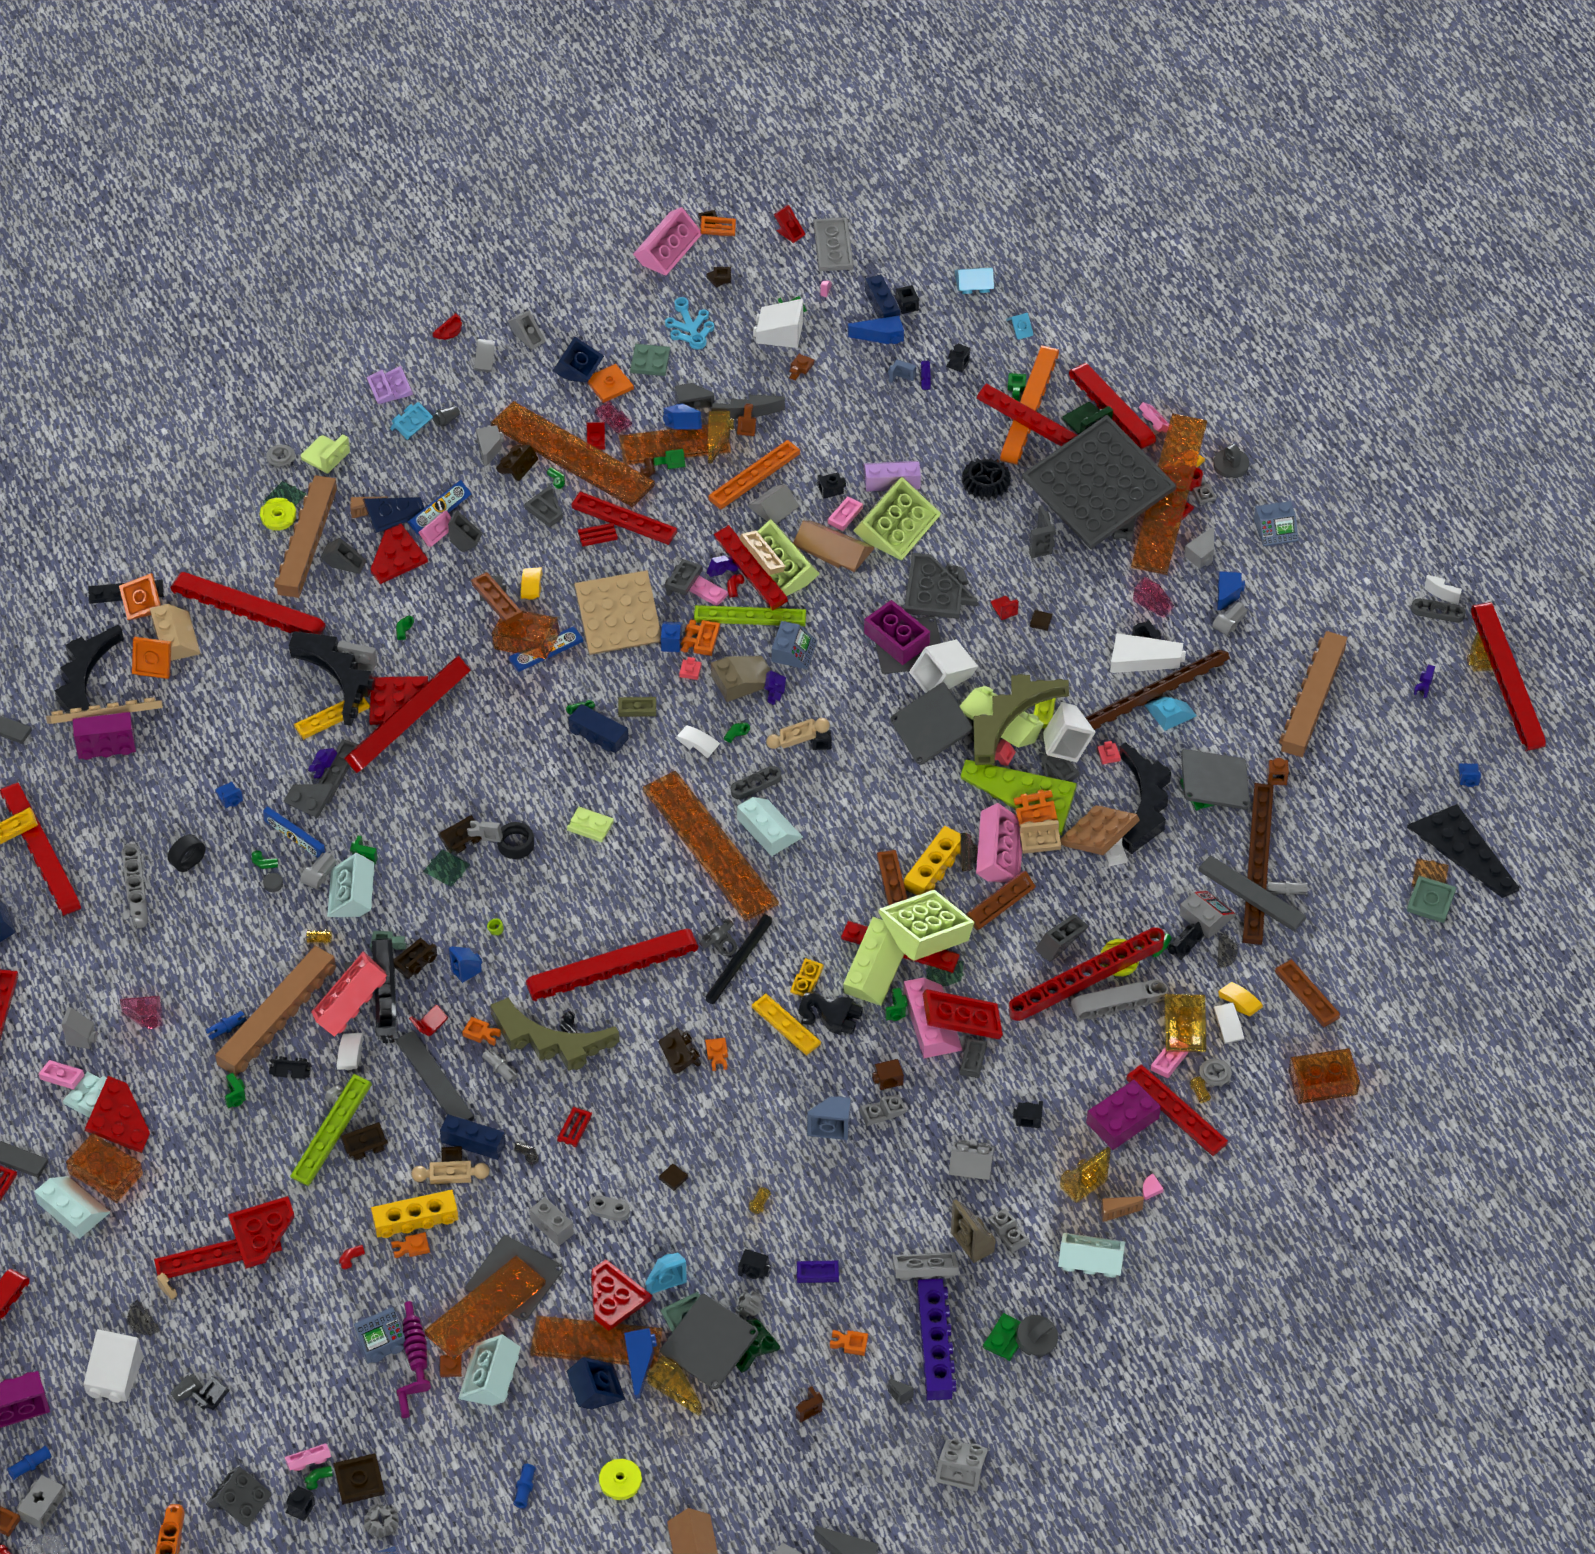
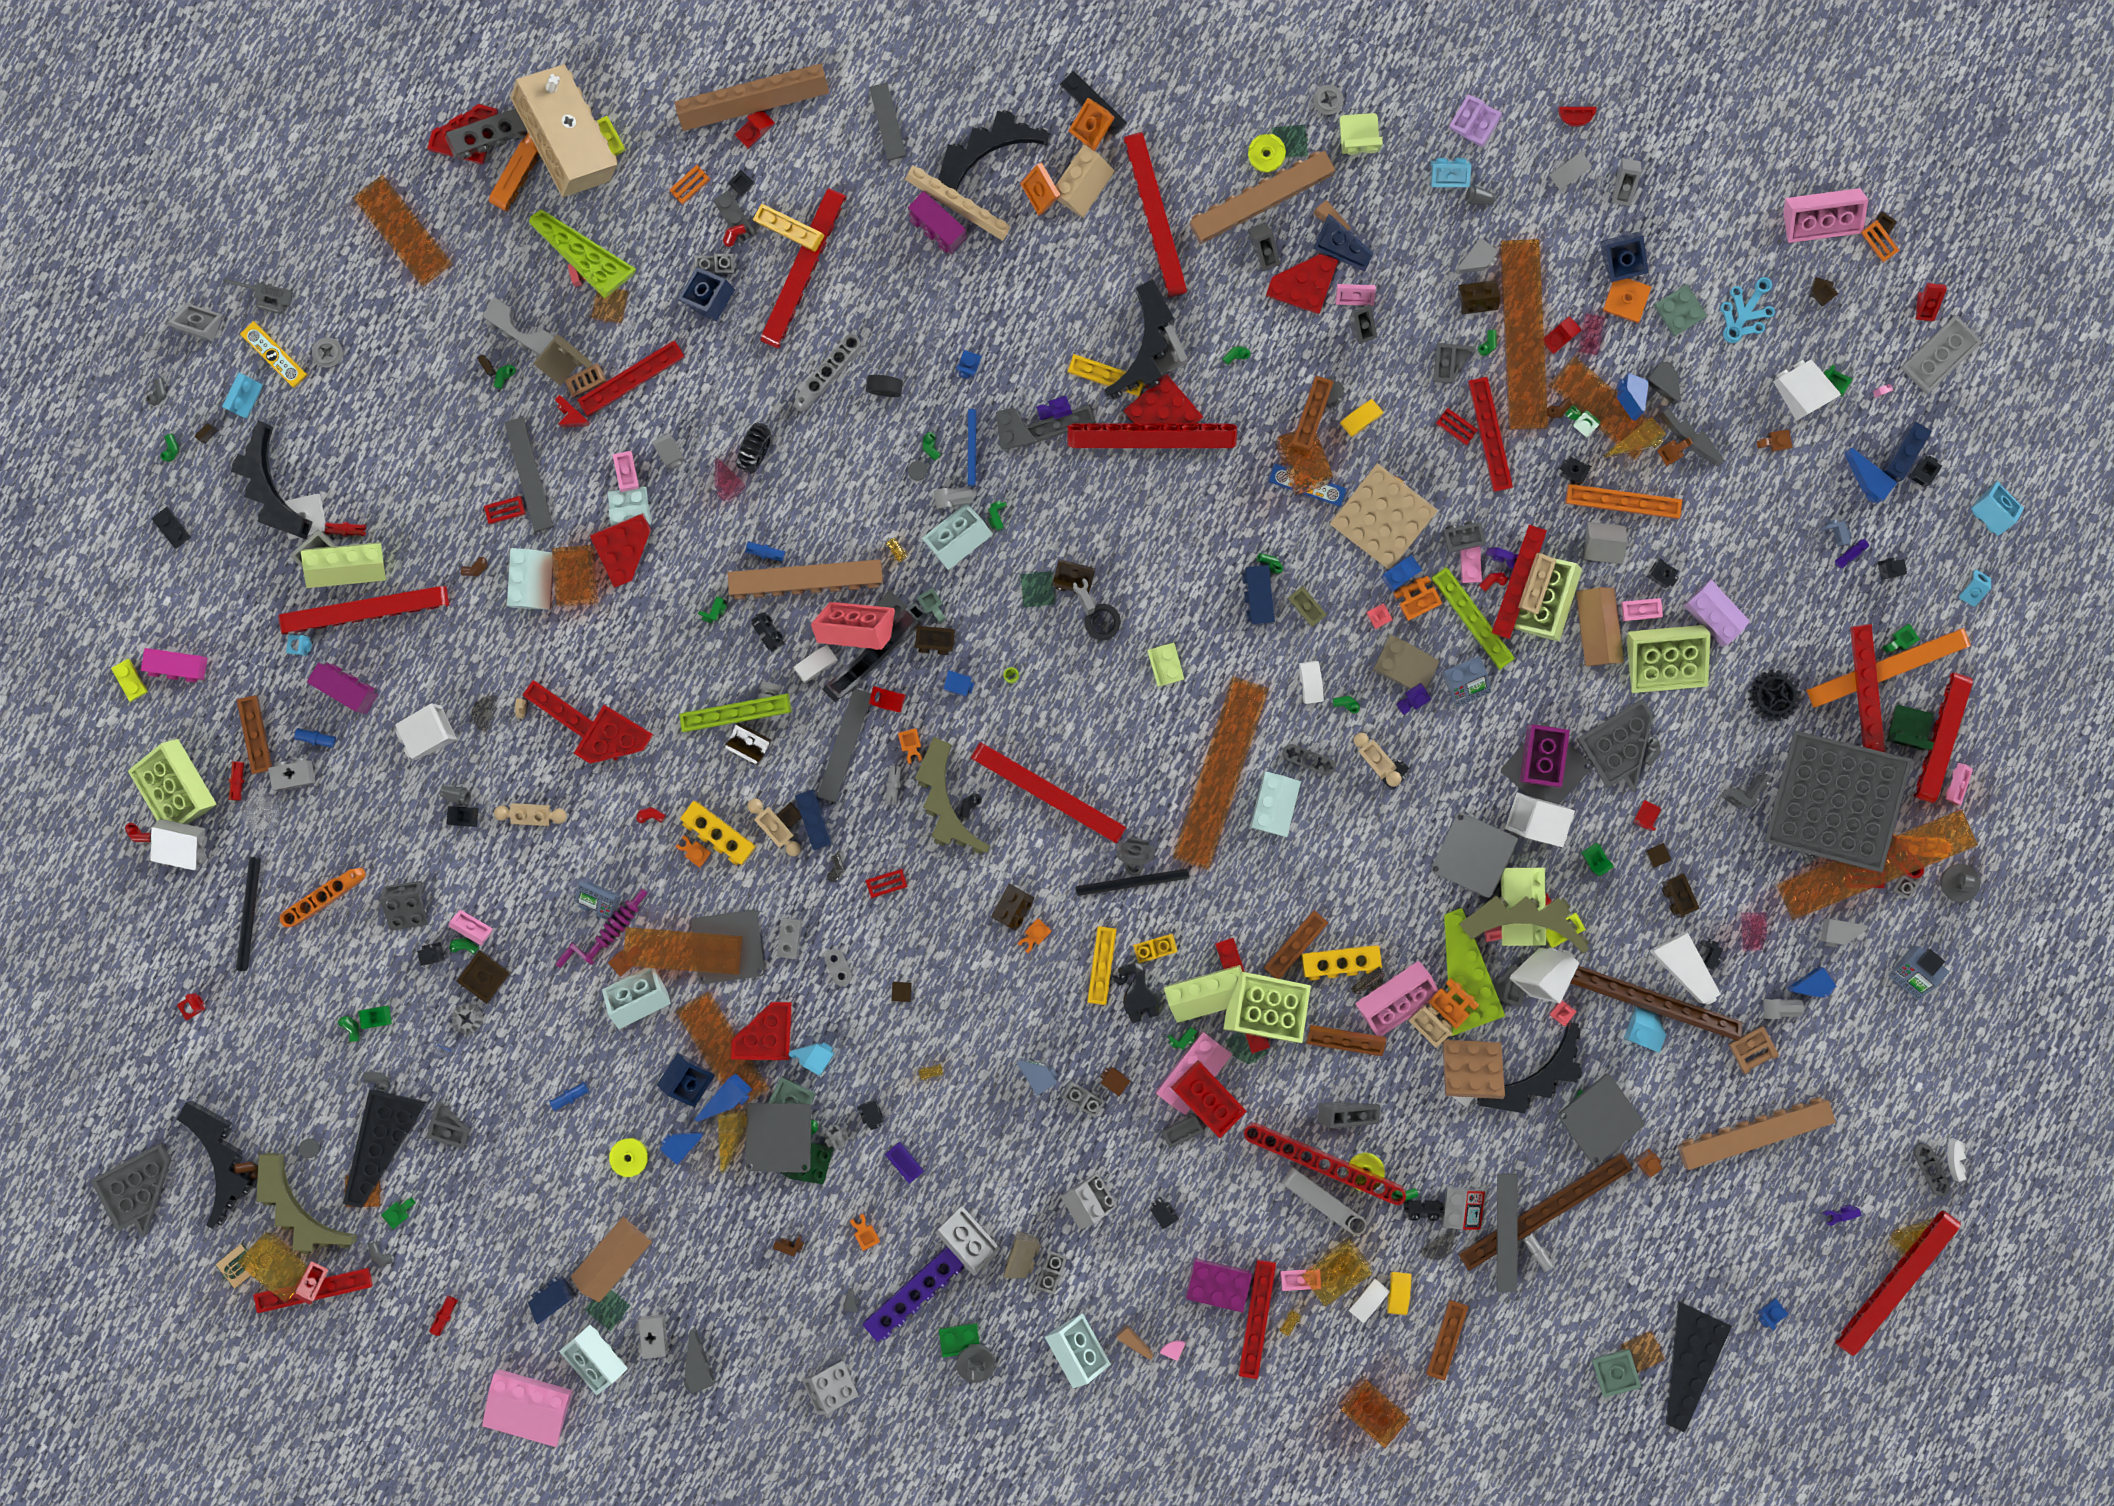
camera: 50 degrees right, 35 degrees up
(22, 1240) = (476, 569): none -> reddish brown arm
(140, 969) = (754, 448): none -> black gear
(260, 1343) = (530, 814): none -> tan plate
(445, 502) = (1379, 276): tile -> none
(646, 1427) = (680, 1144): none -> blue slope
(701, 486) = (1575, 477): none -> black brick
(1007, 656) = (1597, 860): none -> green bracket
(1084, 625) = (1680, 895): none -> dark brown bracket
(1086, 1176) = (1138, 1300): clear yellow slope -> none
(1219, 1066) = (1316, 1331): light grey gear -> none
(1240, 656) = (1750, 1044): none -> medium nougat plate
(1272, 503) = (1930, 962): none -> black tile

